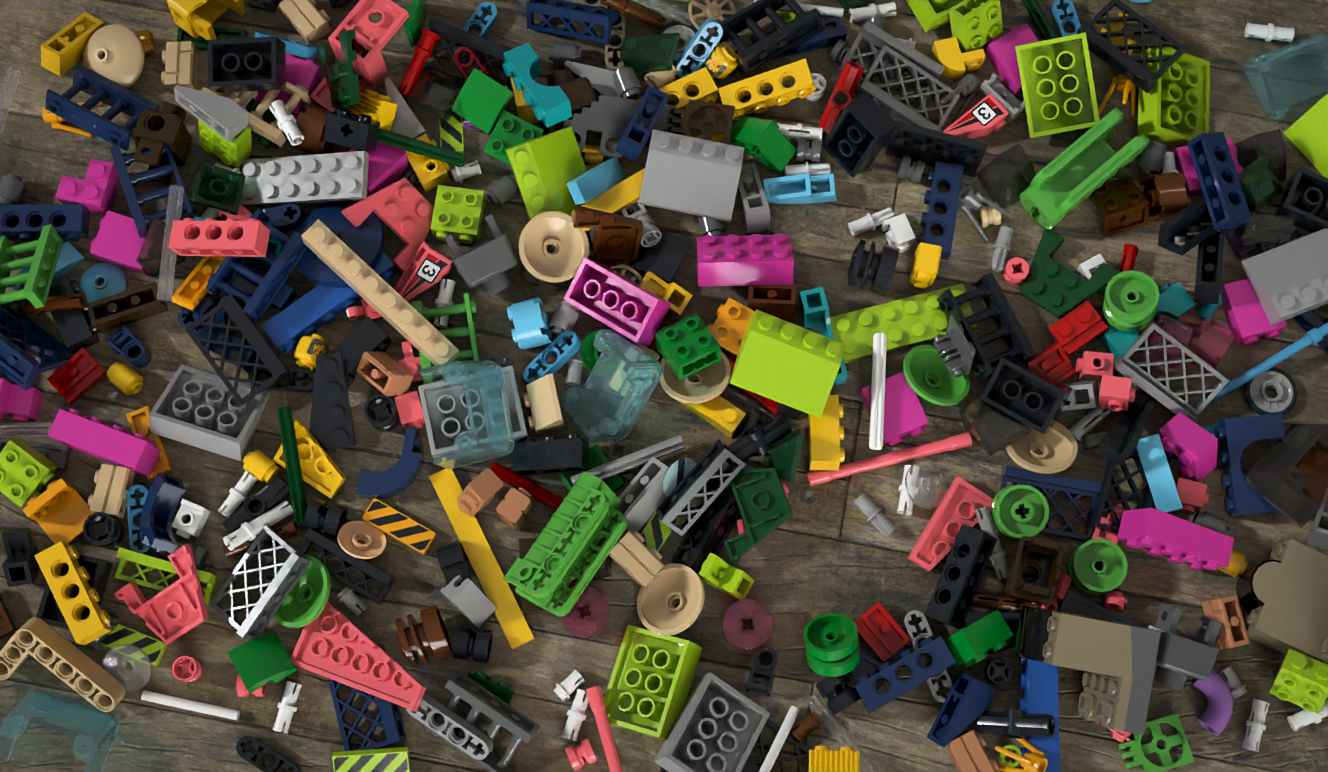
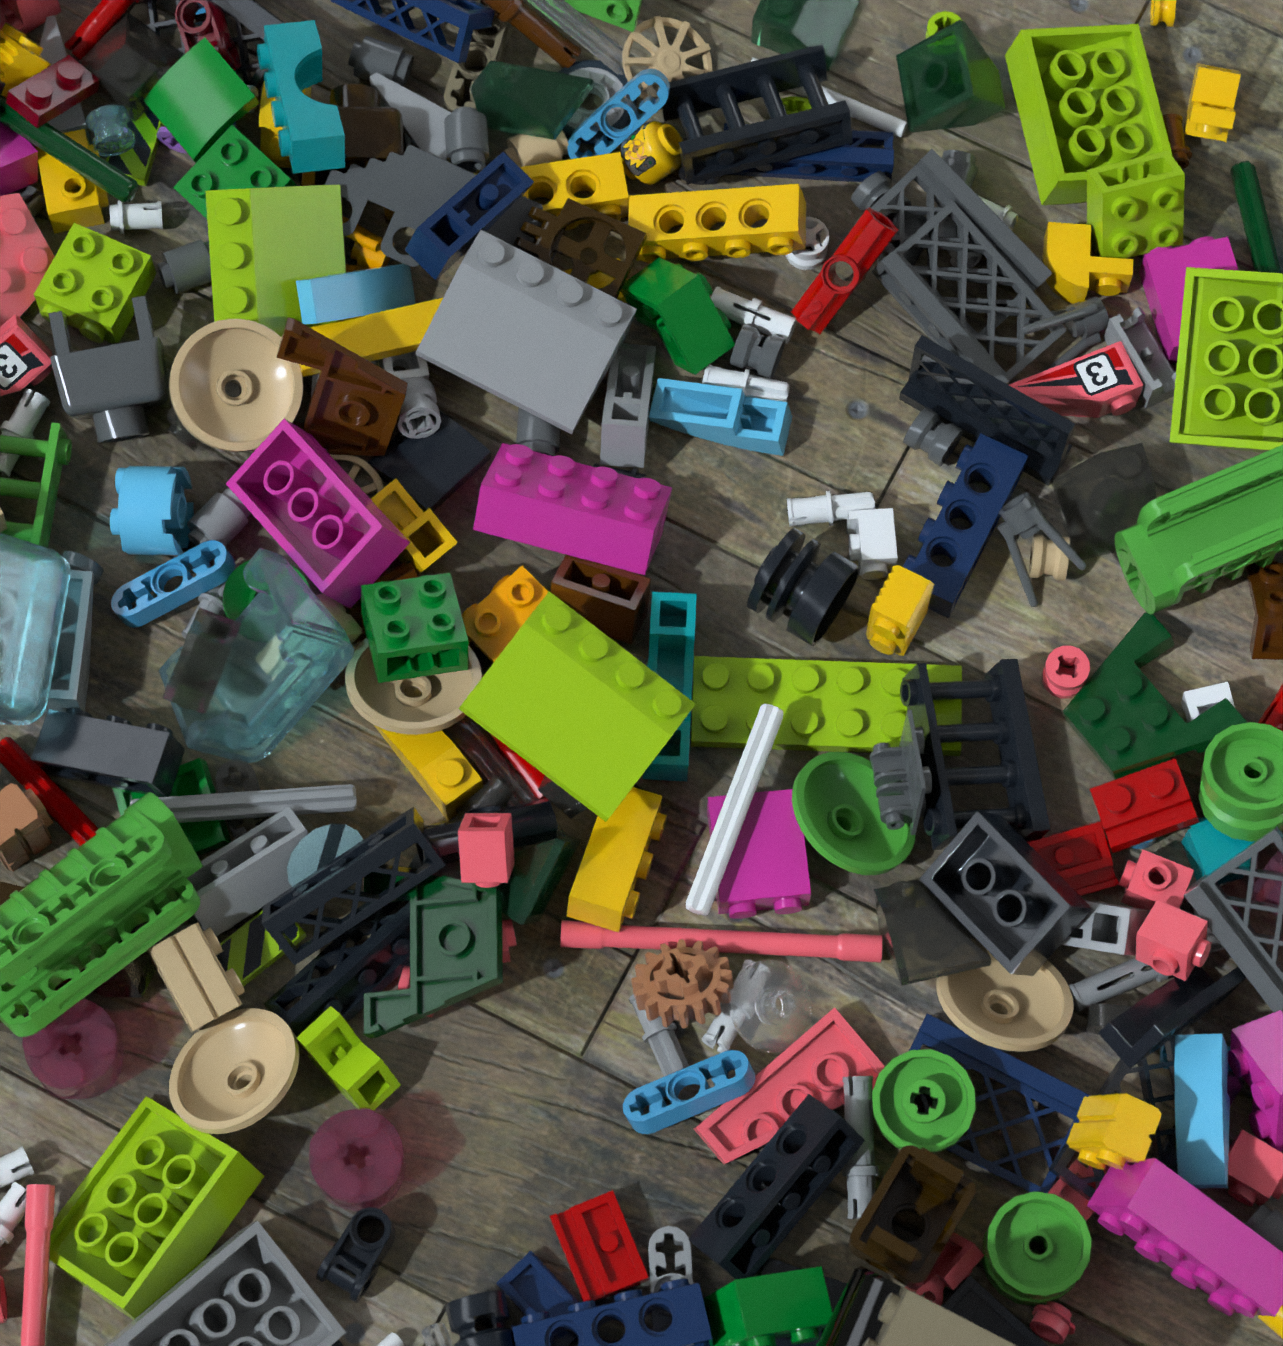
camera: 15 degrees right, 5 degrees down
(404, 118) = (52, 91): none -> dark red plate
(439, 130) = (110, 130): none -> clear light blue wheel
(544, 406) = (130, 662): tan slope -> none
(584, 395) = (202, 661): none -> clear smoke brick
(764, 449) = (486, 848): none -> coral brick
(832, 644) = (496, 1239): green wheel -> none
(859, 135) = (851, 345): black brick -> none
(871, 11) = (940, 139): white pin -> none
(880, 487) = (682, 983): none -> nougat gear
(918, 535) = (671, 1085): none -> dark azure beam
(998, 601) = (825, 1253): reddish brown pin -> none
(1001, 249) = (1053, 625): light grey axle -> none
(1121, 498) = (1113, 1130): none -> yellow brick

